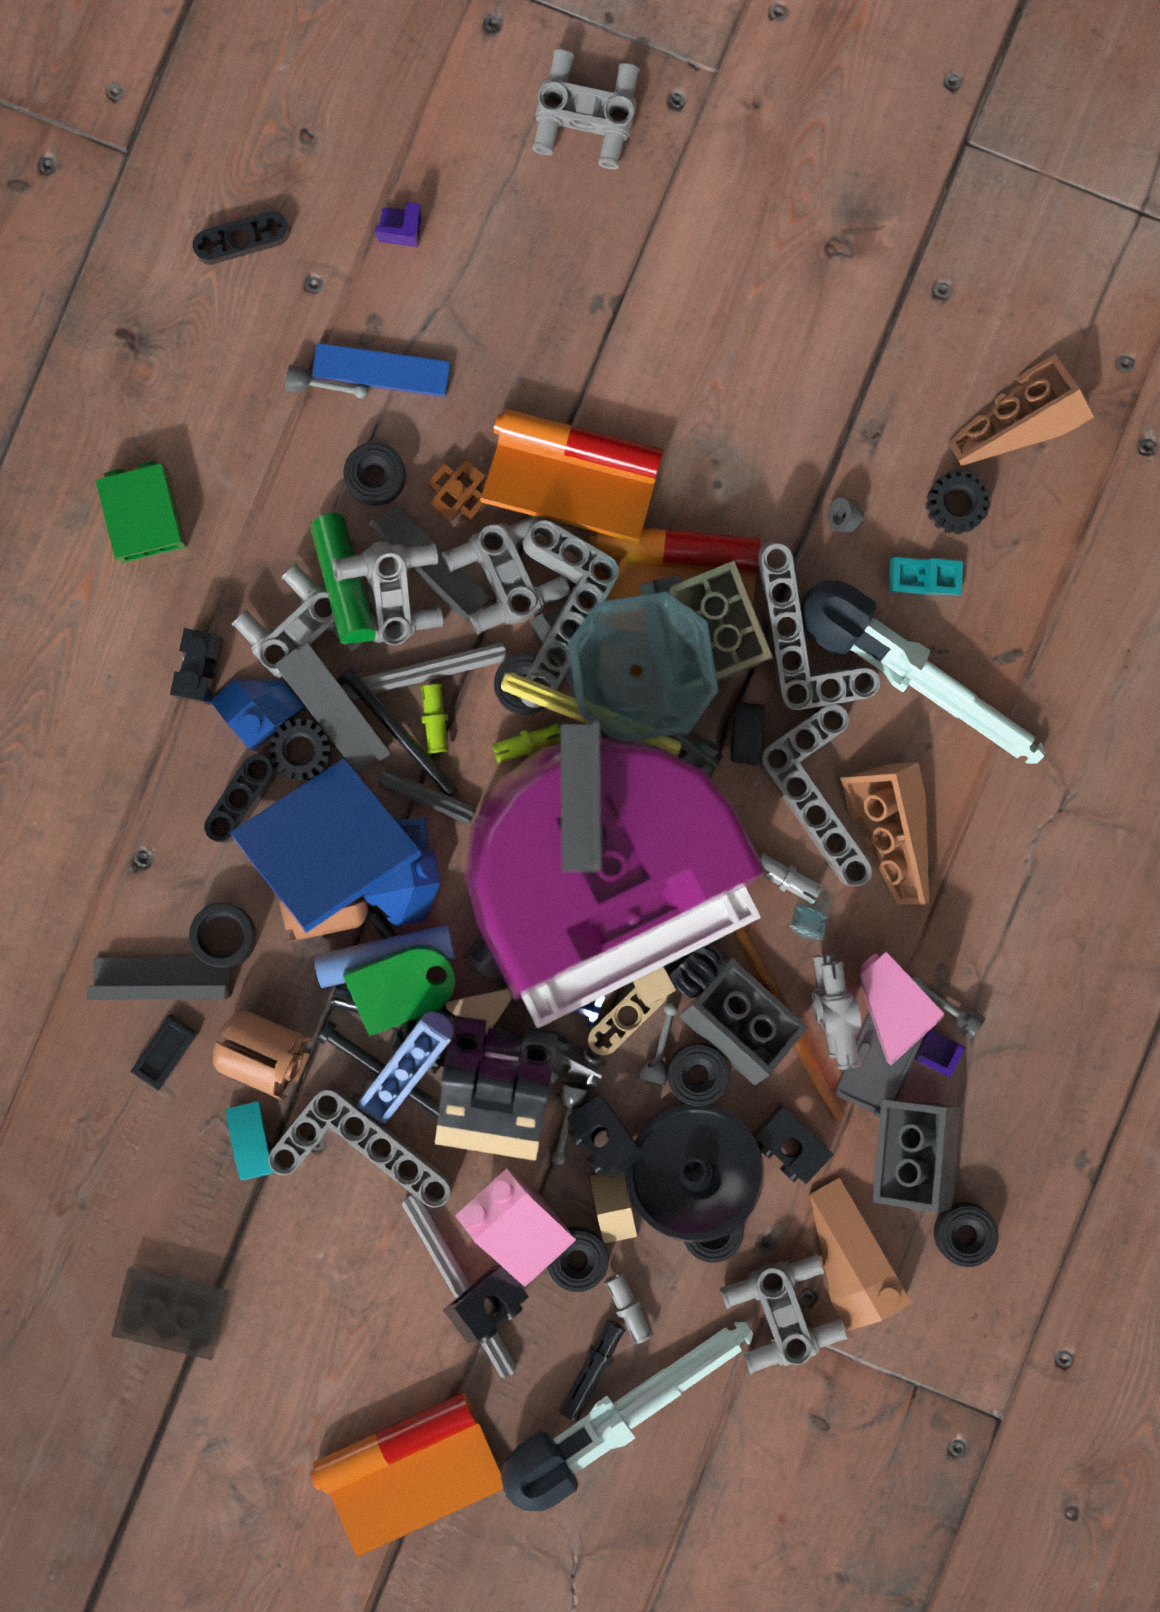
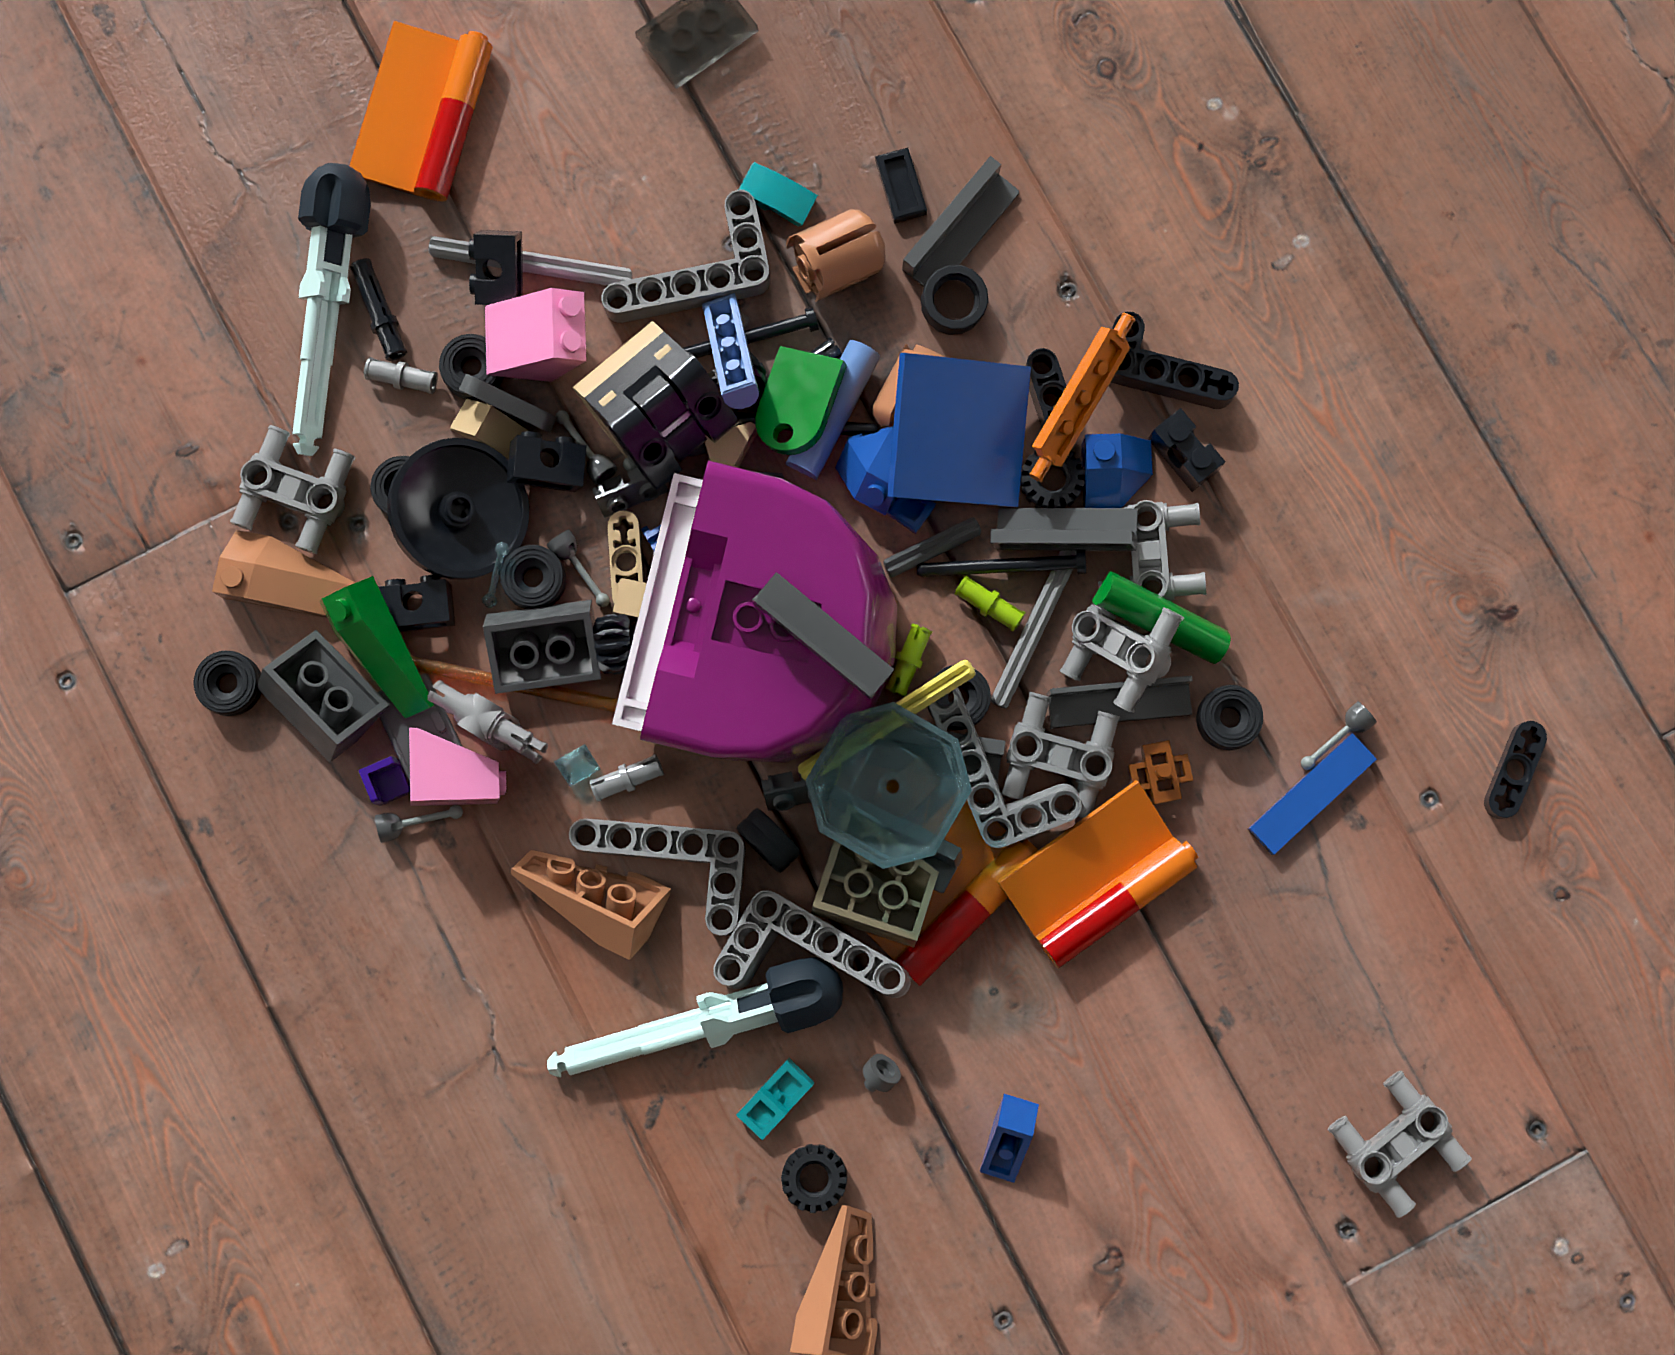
camera: 125 degrees right, 5 degrees down
(140, 512) = (1349, 506): green brick -> none
(143, 729) = (1170, 368): none -> black beam
(223, 774) = (1081, 396): none -> orange plate
(400, 225) = (1422, 908): dark purple panel -> none
(584, 1205) = (507, 403): none -> dark grey beam
(741, 1093) = (490, 599): none -> clear light blue hinge
(812, 386) = (1009, 1138): none -> blue slope
(844, 1152) = (371, 635): none -> green wedge

